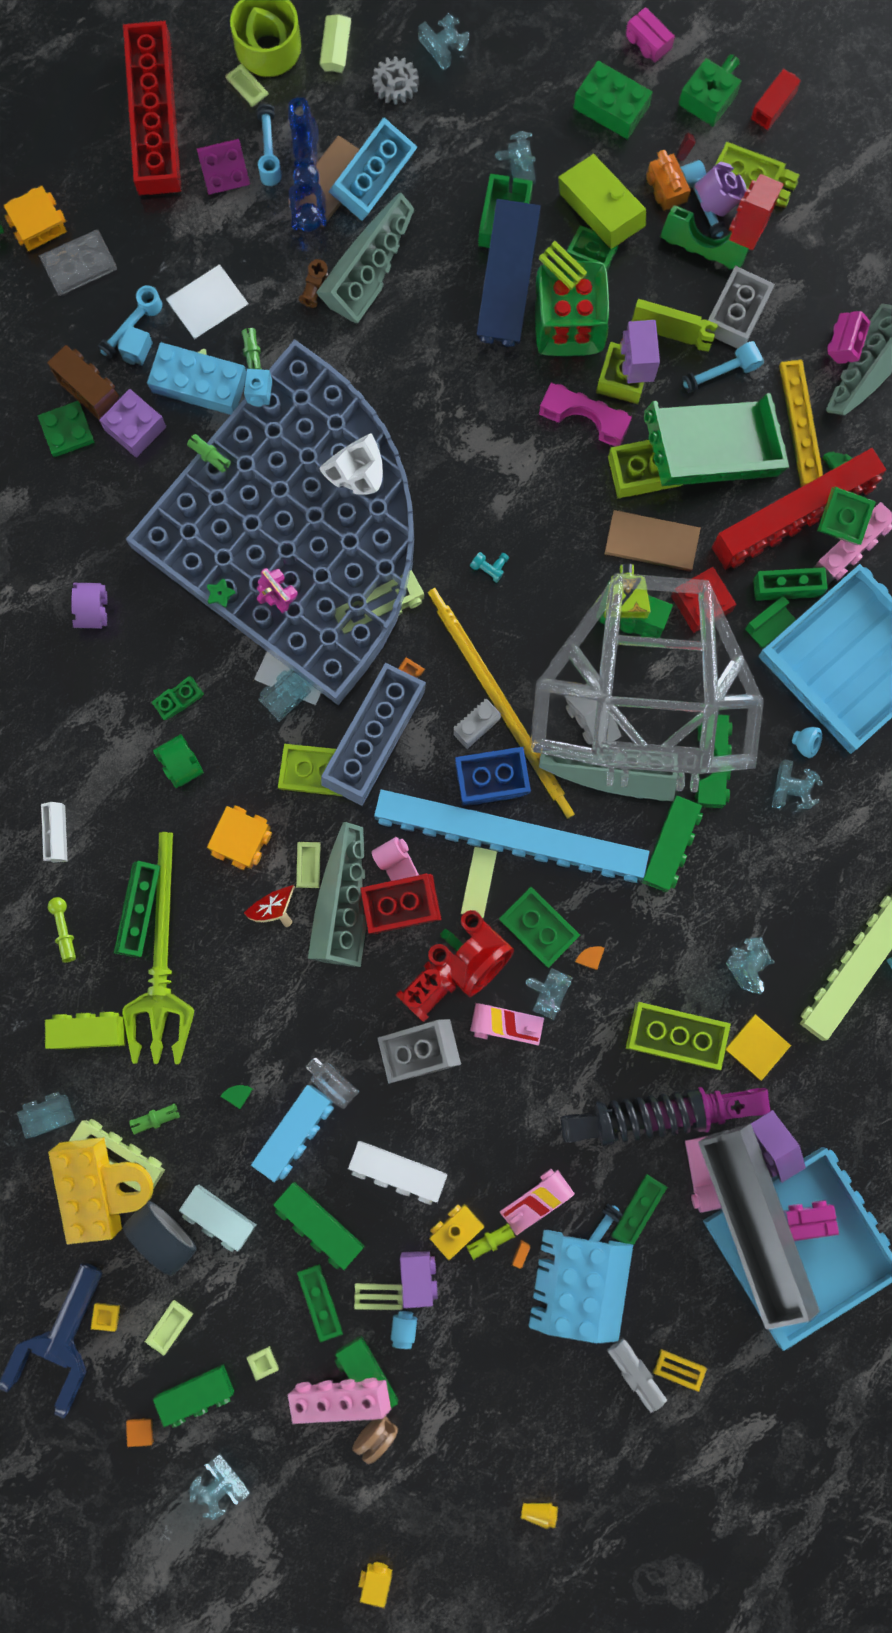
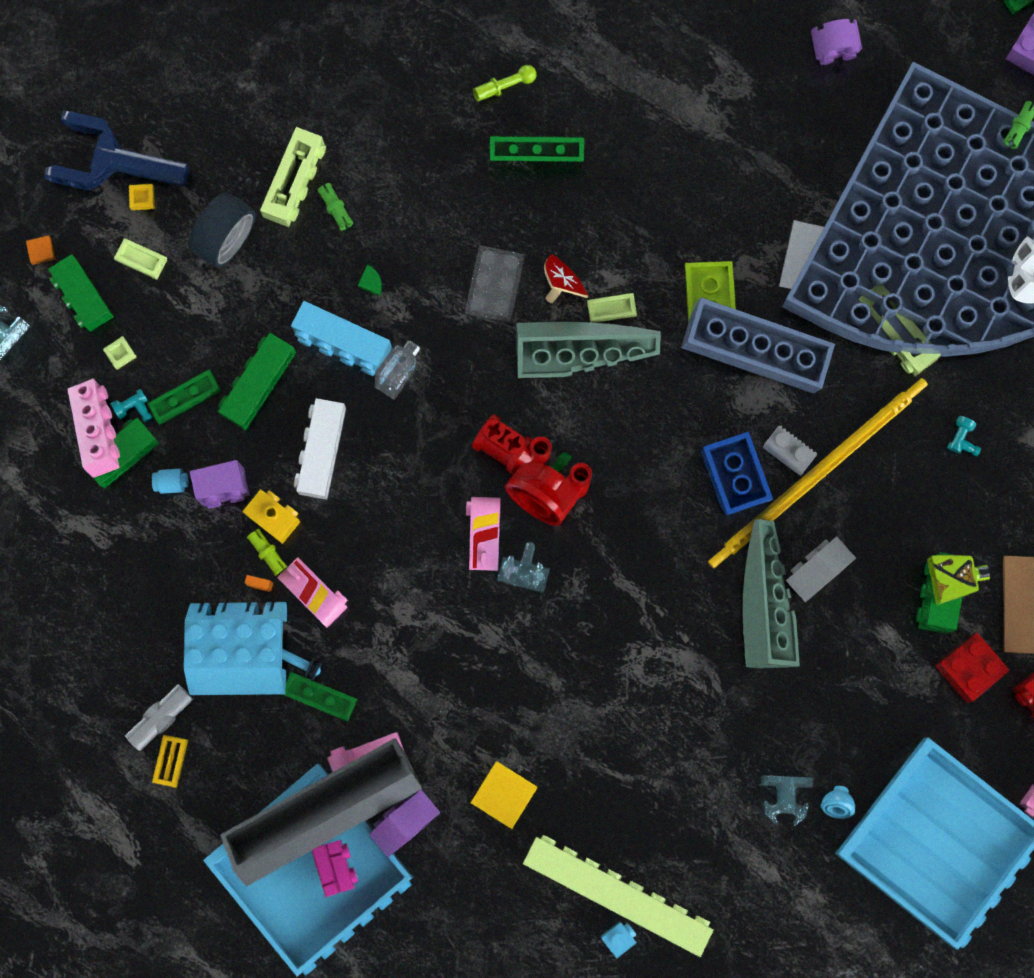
camera: 85 degrees right, 0 degrees up
(46, 1116) = (321, 103): clear light blue brick -> none
(54, 832) = (599, 55): white piece -> none
(85, 1031) = (408, 123): lime brick -> none
(91, 1191) = (256, 156): yellow brick -> none
(158, 999) = (451, 187): lime piece -> none
(178, 698) = (757, 147): green slope -> none
(178, 761) = (693, 159): green brick -> none
(217, 1218) = (249, 283): light aqua brick -> none
(219, 599) = (871, 169): green plate -> none
(239, 838) = (626, 234): light orange brick -> none
(263, 973) = (494, 284): none -> clear plate
(272, 592) = (884, 213): dark pink hips -> none
(284, 694) = (782, 251): clear light blue brick -> none
(315, 1352) = (136, 400): none -> teal piece
(375, 1439) = (64, 470): medium nougat head -> none
(381, 1306) = (195, 433): yellowish green tile -> none
(395, 859) = (632, 393): bright pink door -> none
(400, 903) = (587, 404): red brick -> none
(411, 668) = (835, 374): orange tile -> none
(419, 1050) = (443, 450): light grey slope -> none
(479, 880) = (625, 482): yellowish green tile -> none
(511, 835) = (679, 506): medium azure brick -> none
(539, 927) = (589, 550): green plate -> none
(540, 1514) = (14, 645): yellow cone -> none
(590, 957) = (567, 608): orange tile -> none
(599, 688) = (786, 642): clear windscreen -> none
(671, 844) = (701, 673): green brick -> none
(678, 1036) = (501, 707): lime brick -> none
(684, 1111) = (425, 733): black piece -> none
(712, 790) = (766, 707): green arch -> none
(747, 964) = (594, 775): clear light blue piece -> none
(770, 623) = (962, 745): green panel -> none
(790, 584) = (1008, 758): green brick -> none

